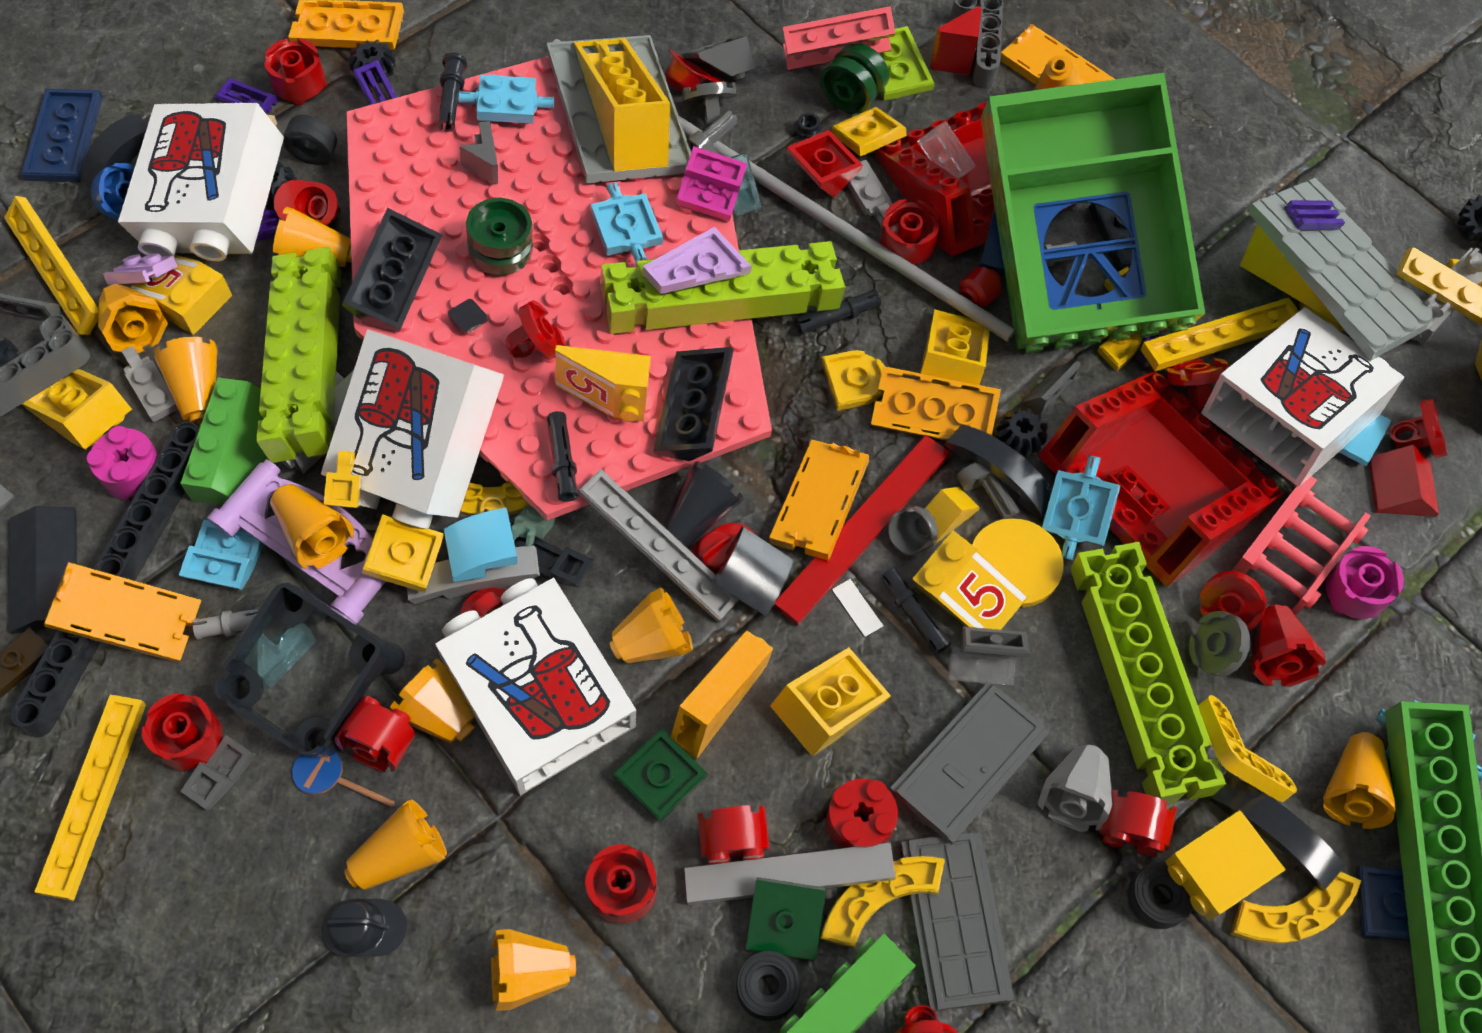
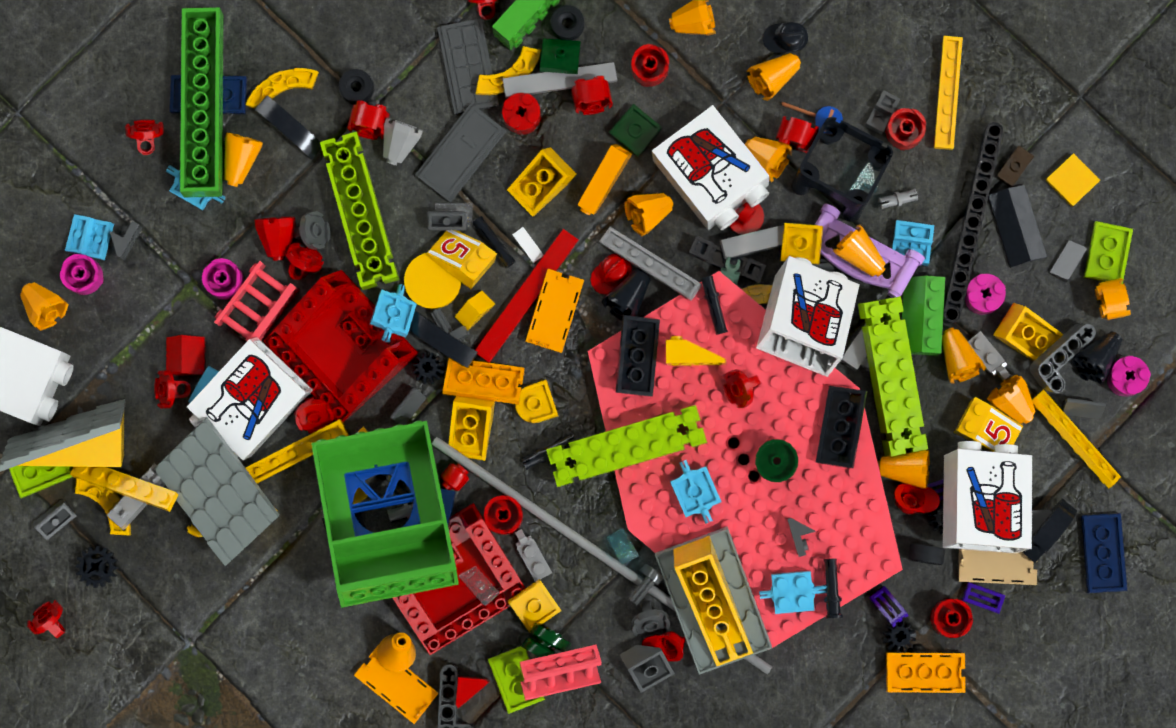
camera: 175 degrees left, 20 degrees up
(110, 189) = (1045, 493): blue cylinder -> none
(122, 610) = (957, 192): light orange piece -> none
(140, 269) = (1013, 432): lavender plate -> none
(343, 487) = (842, 270): yellow plate -> none
(467, 316) = (789, 403): black piece -> none
(480, 544) = (756, 251): medium azure slope -> none
(696, 263) = (644, 444): lavender wing -> none
(711, 183) = (641, 534): dark pink slope -> none
(753, 571) = (591, 254): slope -> none
(808, 125) = (577, 615): black plate -> none
(826, 161) = (565, 569): red slope -> none
(912, 530) = (496, 291): dark grey hair -> none
(1223, 866) = (325, 96): yellow slope -> none
(1239, 760) = (318, 187): yellow beam -> none
(1312, 210) = (220, 526): dark purple tile -> none

